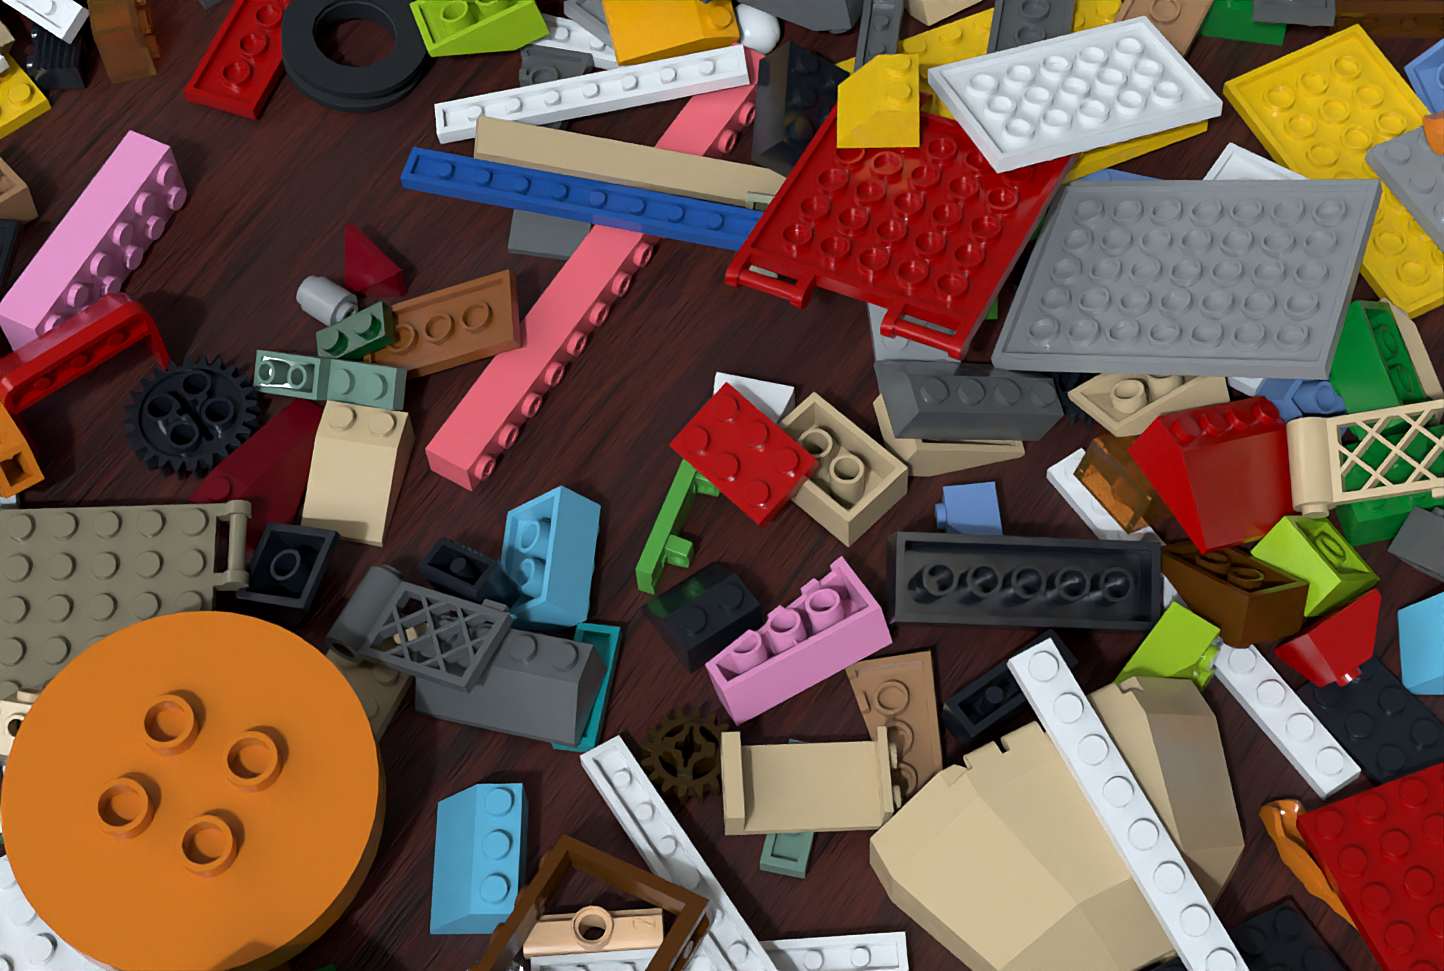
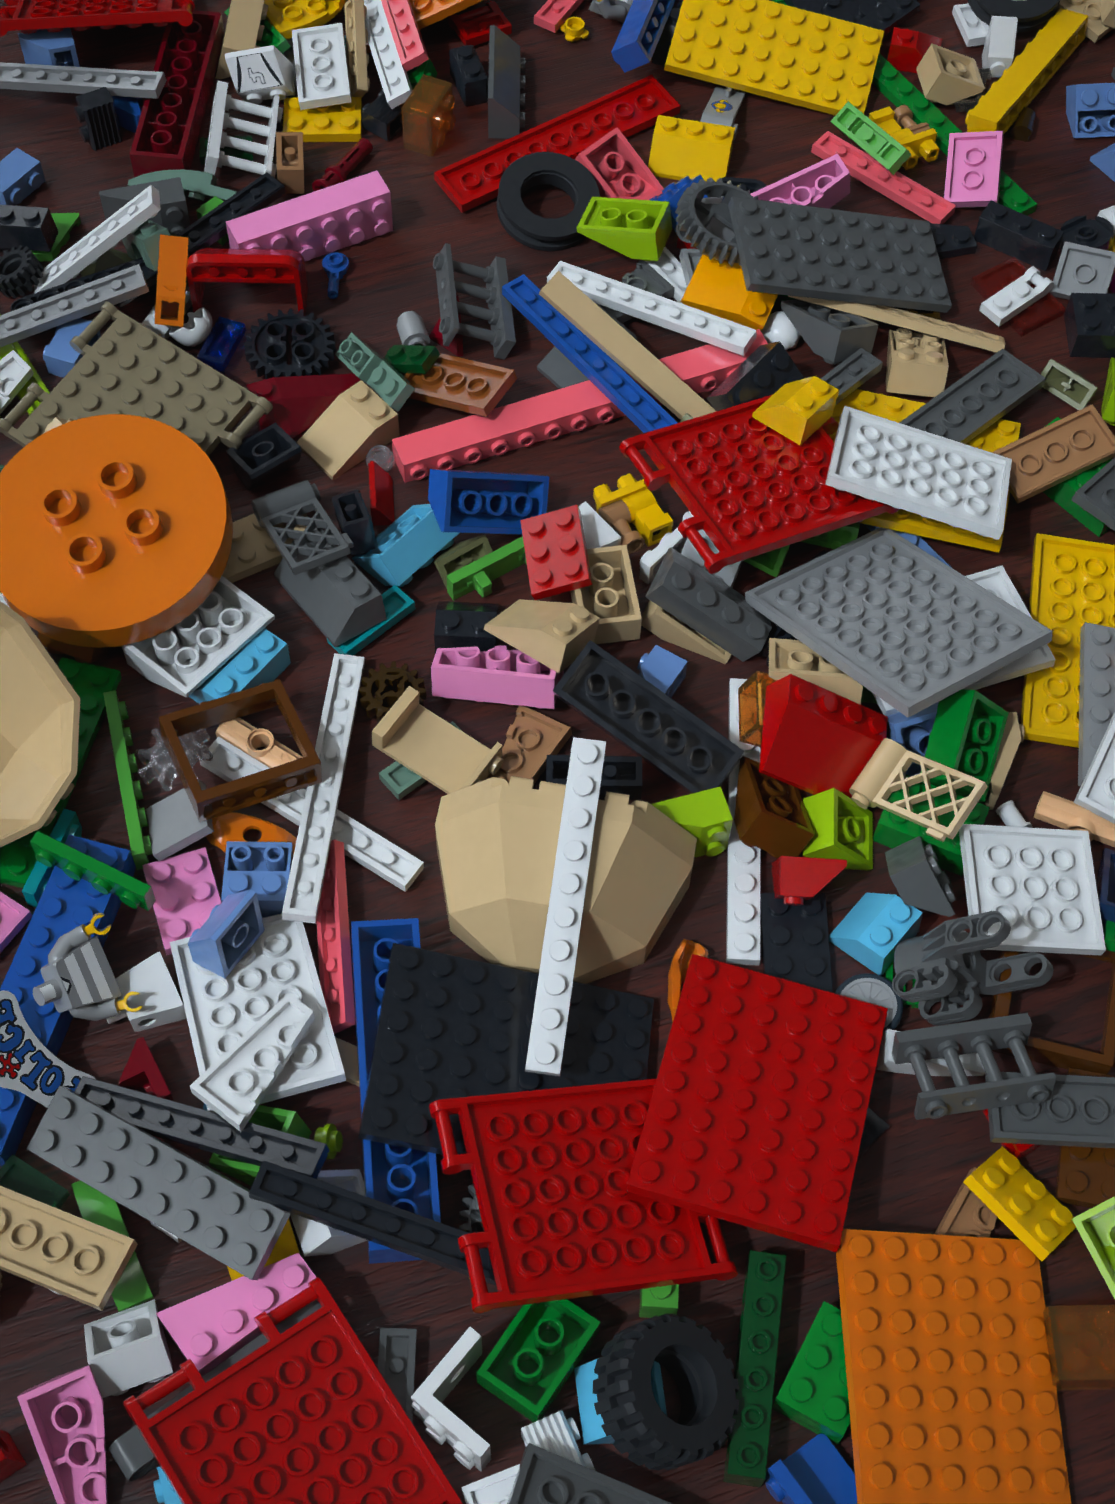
camera: 30 degrees right, 0 degrees up
(58, 468) = (195, 330): none -> white hair
(63, 121) = (339, 172): none -> dark red pin
(100, 468) = (222, 343): none -> clear blue plate
(158, 282) = (335, 266): none -> blue plate
(407, 207) = (500, 309): none -> dark grey fence
(421, 860) = (201, 642): none -> white slope
(422, 482) = (382, 456): none -> clear plate
(459, 523) = (380, 495): none -> red slope
(609, 446) = (486, 500): none -> blue slope
(625, 534) = (461, 554): none -> olive slope
(771, 339) = (636, 505): none -> yellow hips
(814, 555) = (546, 630): none -> tan slope
(850, 360) = (652, 559): none -> white plate

